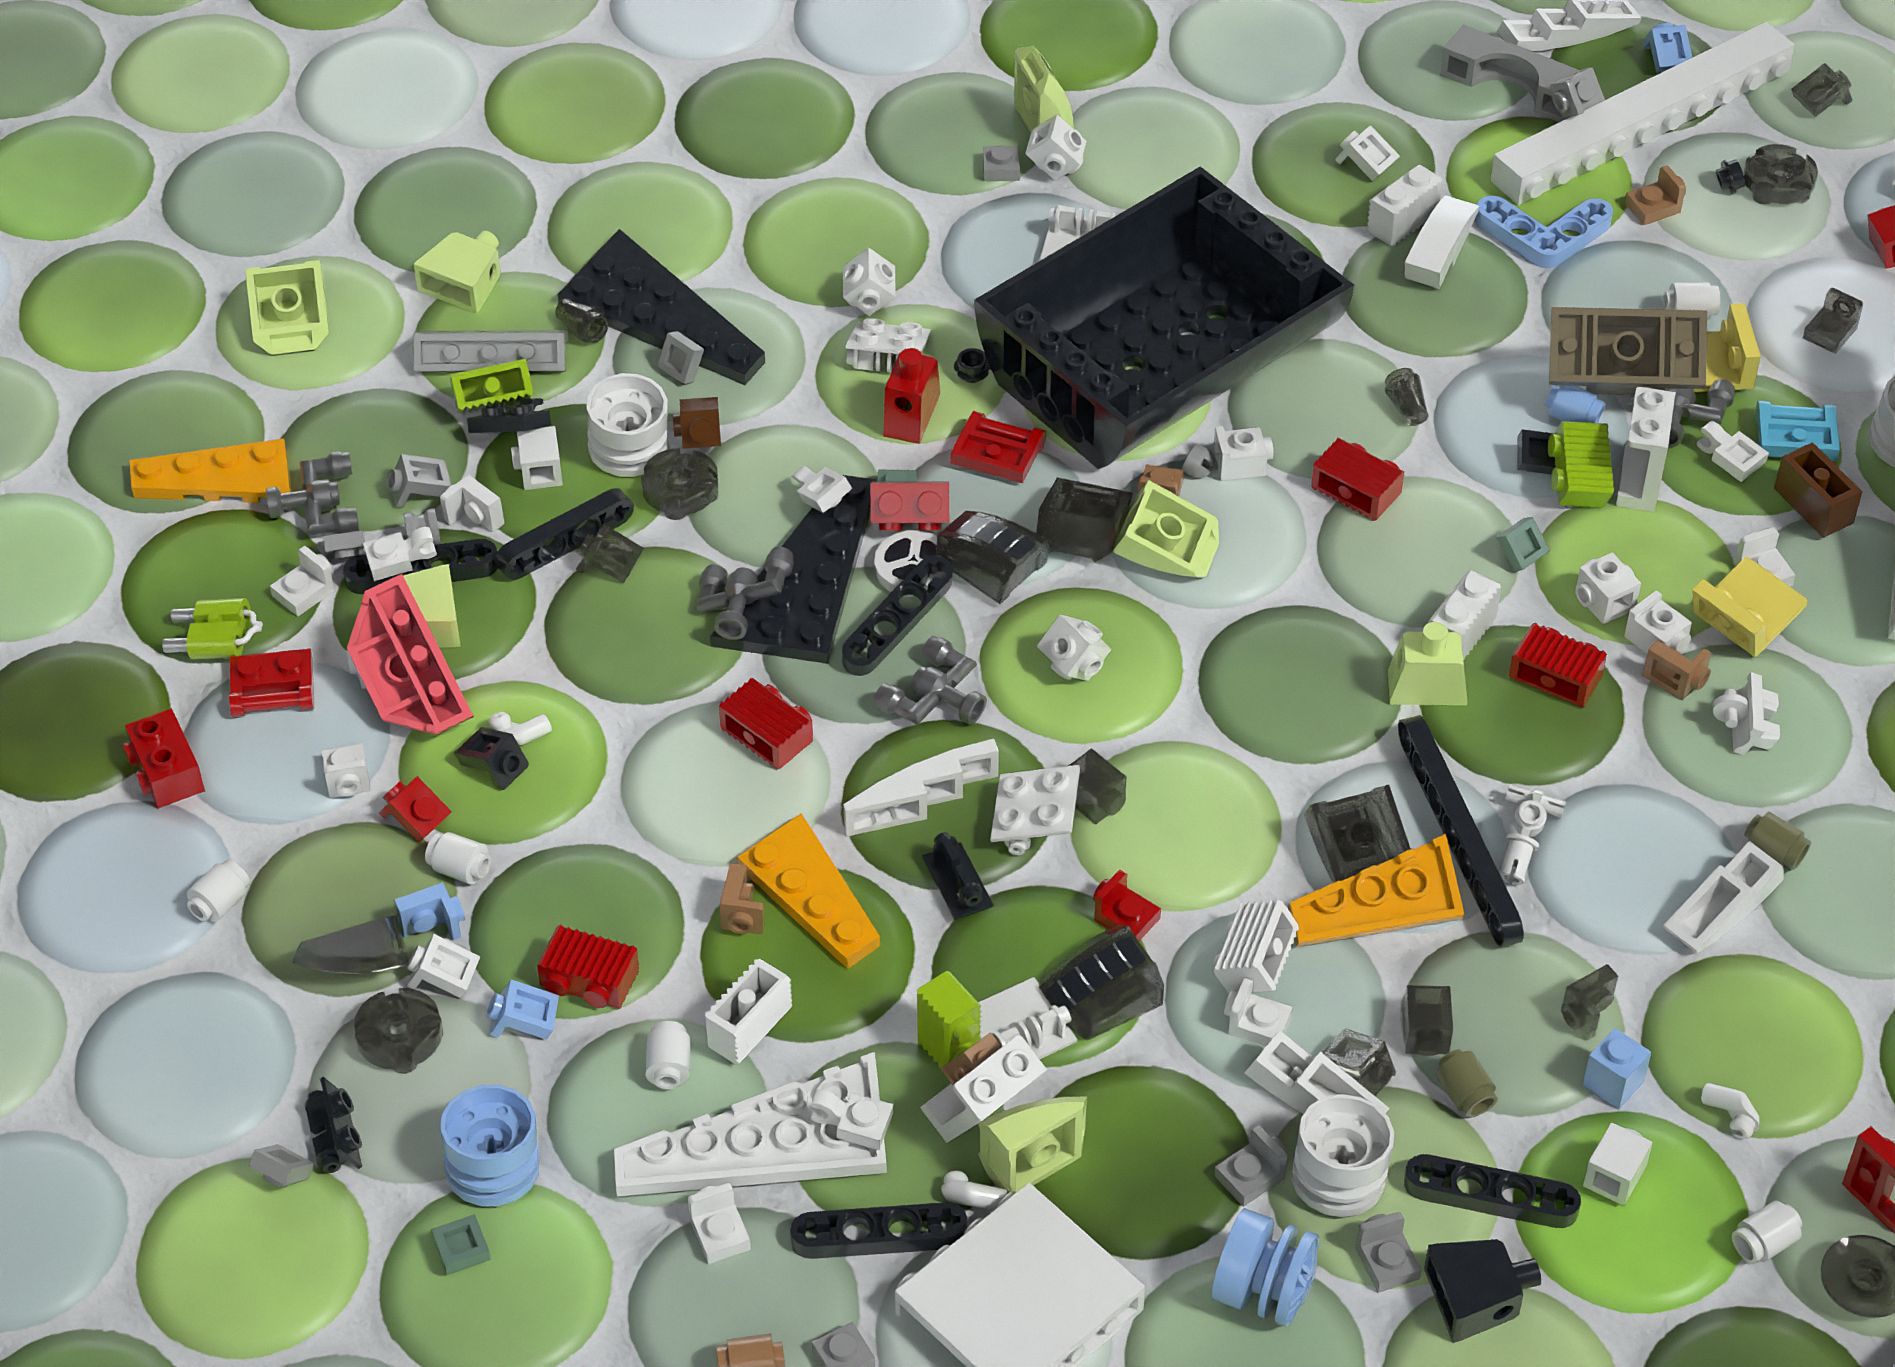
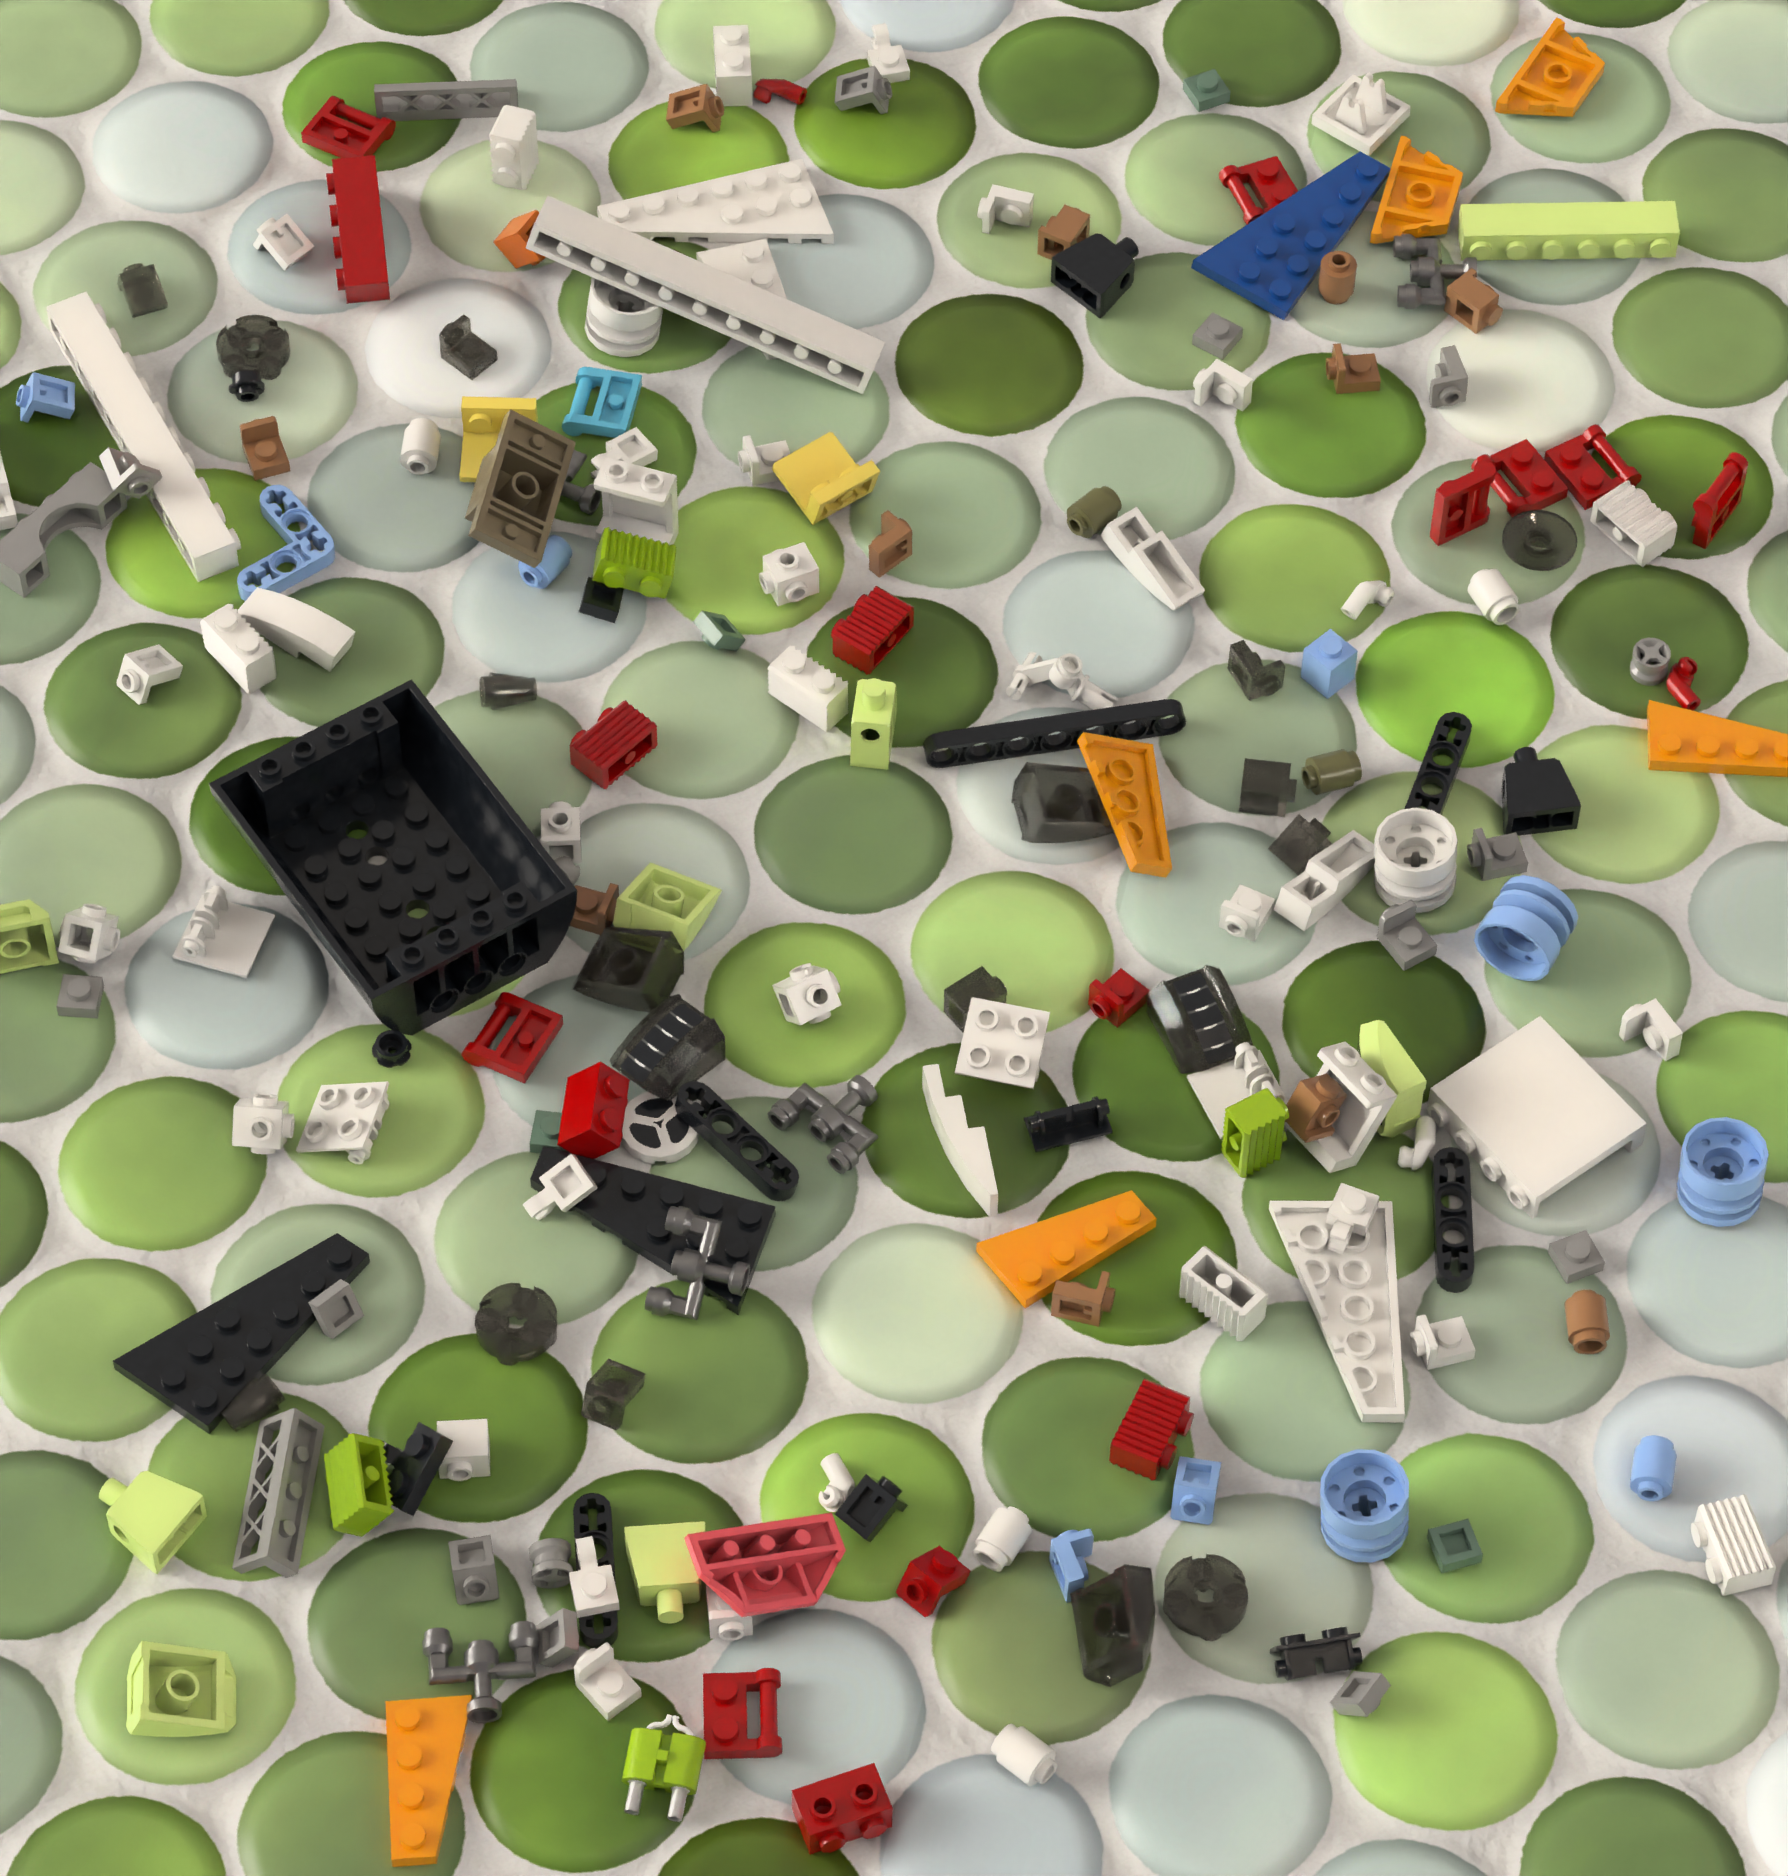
camera: 85 degrees left, 5 degrees up
(346, 770) = (872, 1642): white bracket -> none
(443, 966) = (1137, 1547): white bracket -> none
(474, 500) = (521, 1508): white bracket -> none
(526, 553) = (577, 1430): black beam -> none
(626, 423) = (446, 1353): white wheel -> none
(667, 1055) = (1258, 1367): white brick -> none
(698, 423) = (446, 1291): reddish brown brick -> none
(766, 723) = (863, 1262): red brick -> none
(912, 379) = (442, 1099): red torso -> none
(1256, 946) = (1181, 897): white brick -> none
(1617, 1163) = (1427, 678): white brick -> none
(1658, 621) = (838, 549): white brick -> none
(1745, 714) = (949, 503): white hips -> none
(1818, 489) = (695, 398): reddish brown brick -> none

